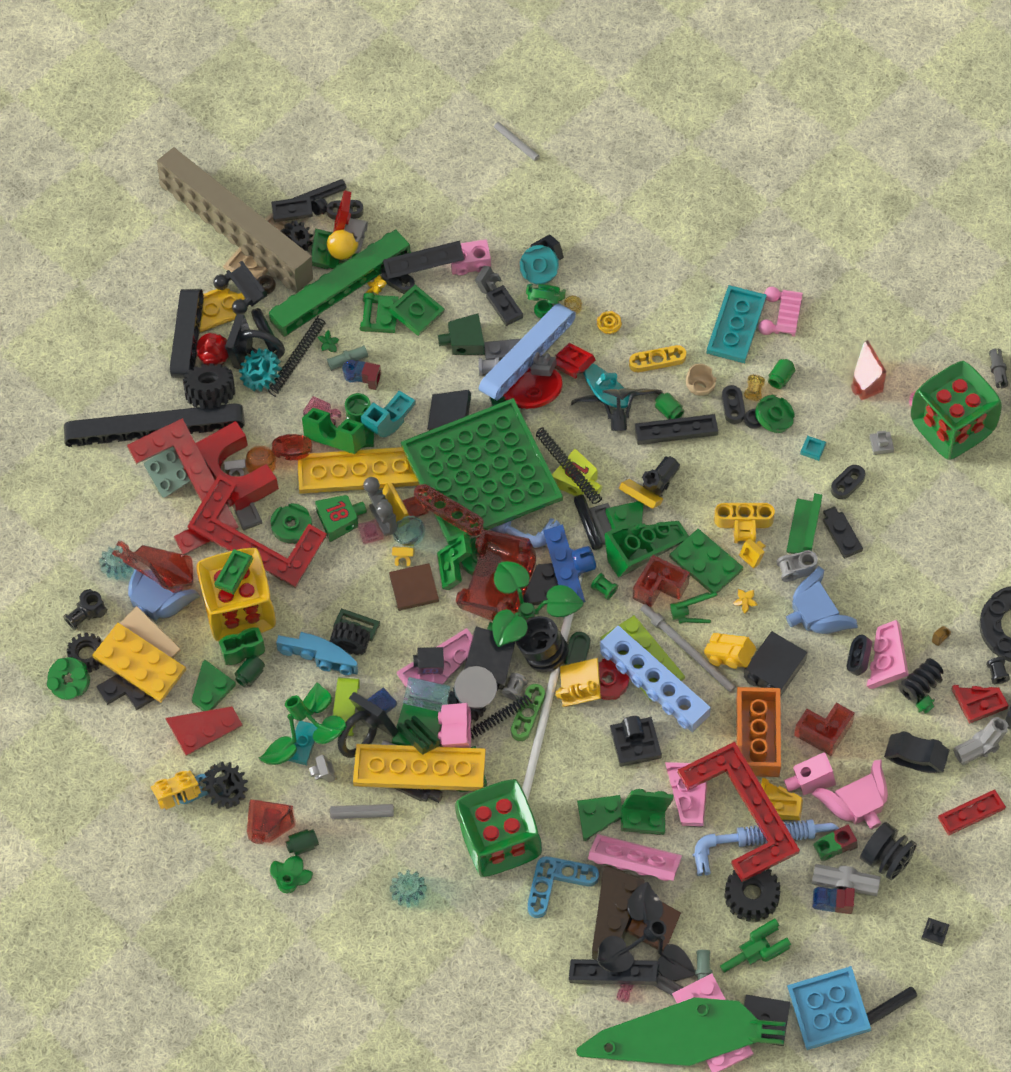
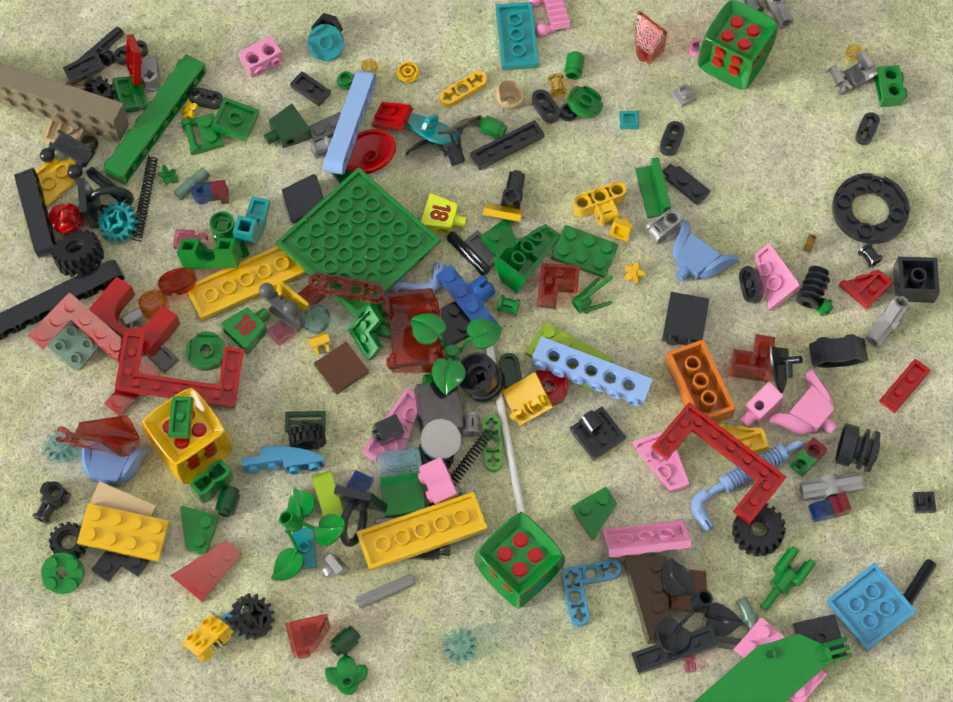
camera: 25 degrees left, 5 degrees up
(342, 244) = (144, 84): yellow hair -> none
(422, 733) = (410, 499): dark green tile -> none
(423, 259) = (223, 72): black plate -> none
(486, 279) = (285, 71): dark grey tile -> none
(543, 365) = (369, 129): dark grey tile -> none
(545, 291) = (342, 64): green plate -> none
(569, 464) = (410, 196): black piece -> none
(645, 812) = (636, 494): green bracket -> none
(659, 621) = (567, 318): light grey bar -> none
(729, 650) = (643, 322): yellow brick -> none
(850, 743) = (782, 365): none -> black shield

